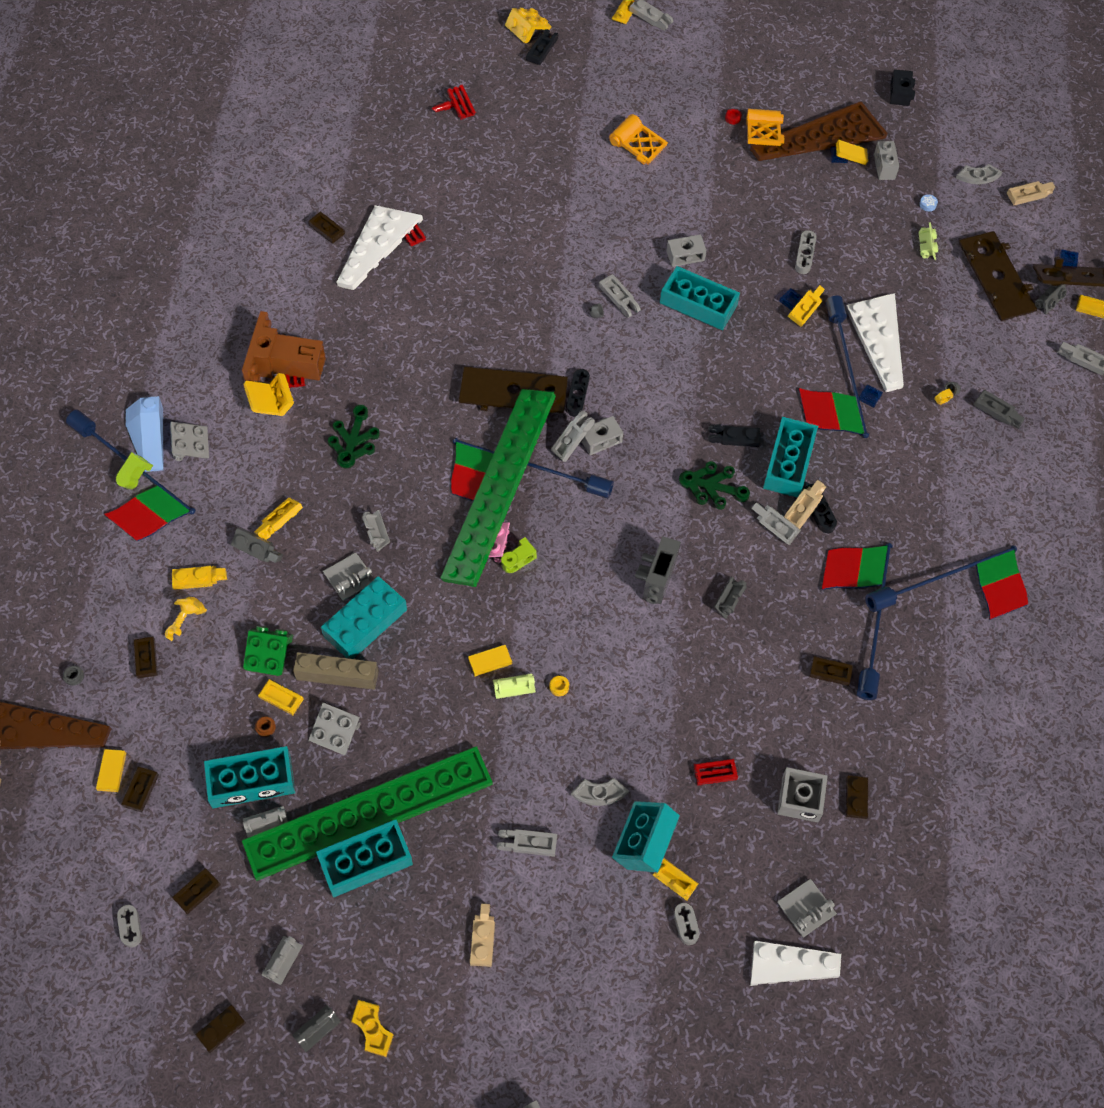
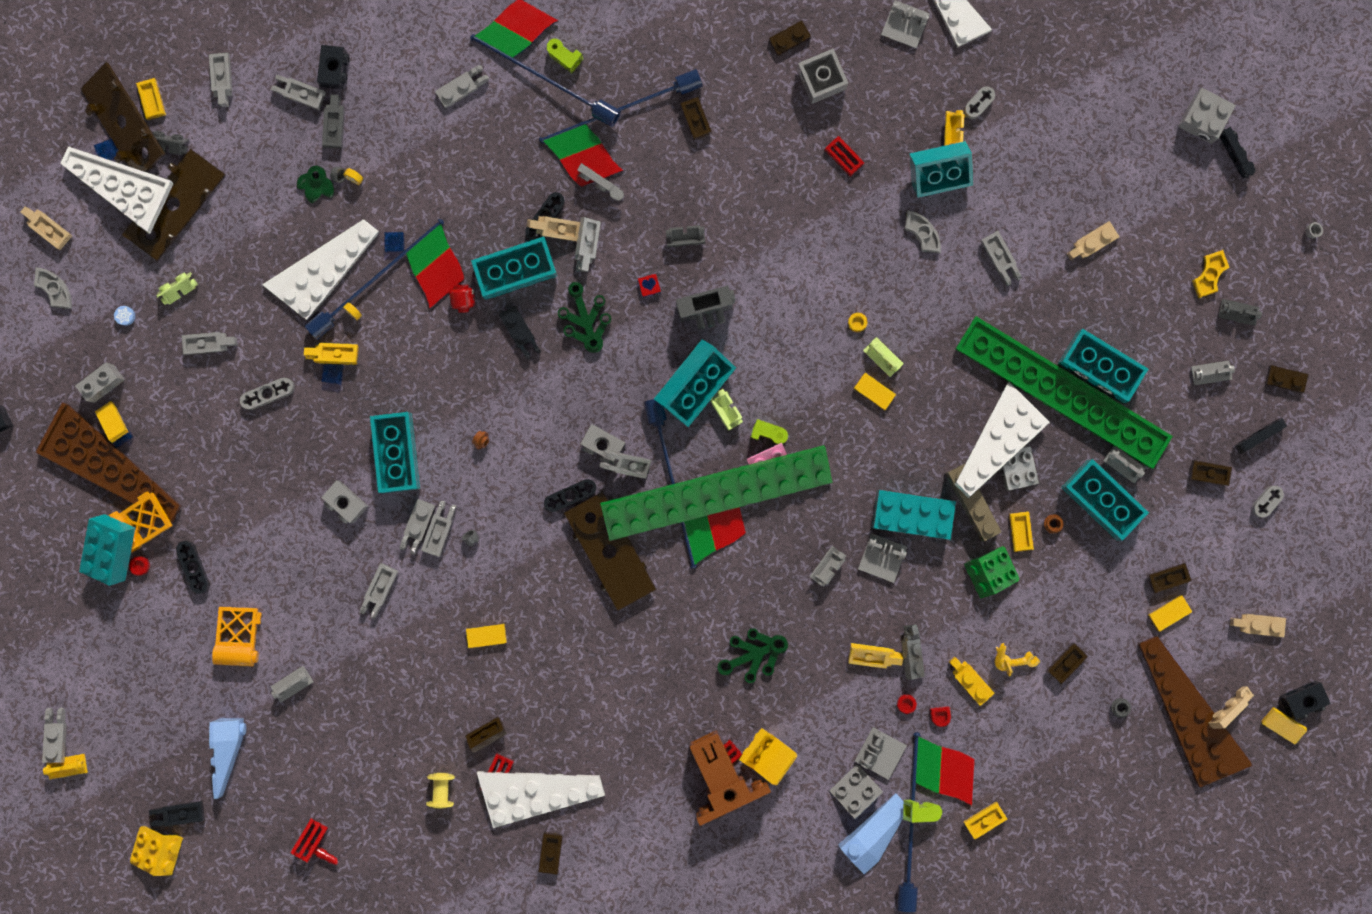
camera: 120 degrees left, 25 degrees up
(34, 840) = (1260, 625): none -> tan hinge
(84, 514) = (985, 820): none -> yellow plate
(190, 537) = (941, 716): none -> red tile
(190, 962) = (1261, 435): none -> black beam
(202, 476) = (880, 753): none -> light grey hinge
(221, 519) = (906, 704): none -> red tile
(372, 735) = (1004, 435): none -> white wing
(422, 185) = (440, 790): none -> light yellow hose
(444, 237) = (485, 734): none -> dark brown plate
(515, 280) = (486, 635): none -> yellow tile
(561, 536) = (728, 415): none -> yellowish green hinge
(567, 90) = (225, 739): none -> light blue wedge
(578, 150) = (291, 684): none -> light grey hinge
(600, 522) = (695, 383): none -> teal brick
(604, 236) = (379, 589): none -> light grey hinge
(634, 285) = (417, 524): none -> light grey hinge
(667, 359) = (480, 439): none -> dark orange plate
(707, 138) = (193, 552): none -> black beam
(707, 548) = (649, 285): none -> red tile
(758, 96) = (107, 549): none -> teal brick
(791, 409) = (462, 298): none -> red head
(822, 562) = (601, 183): none -> light grey hinge
(832, 335) = (351, 310): none -> yellow tile
(871, 237) = (206, 343): none -> light grey hinge
(954, 371) = (315, 187): none -> dark green plate
(954, 602) = (563, 56): none -> lime leg
(974, 514) = (461, 87): none -> light grey hinge
(1031, 248) = (128, 189): none -> white wing
(1039, 401) = (300, 92): none -> light grey hinge
(1048, 433) = (329, 56): none -> black brick

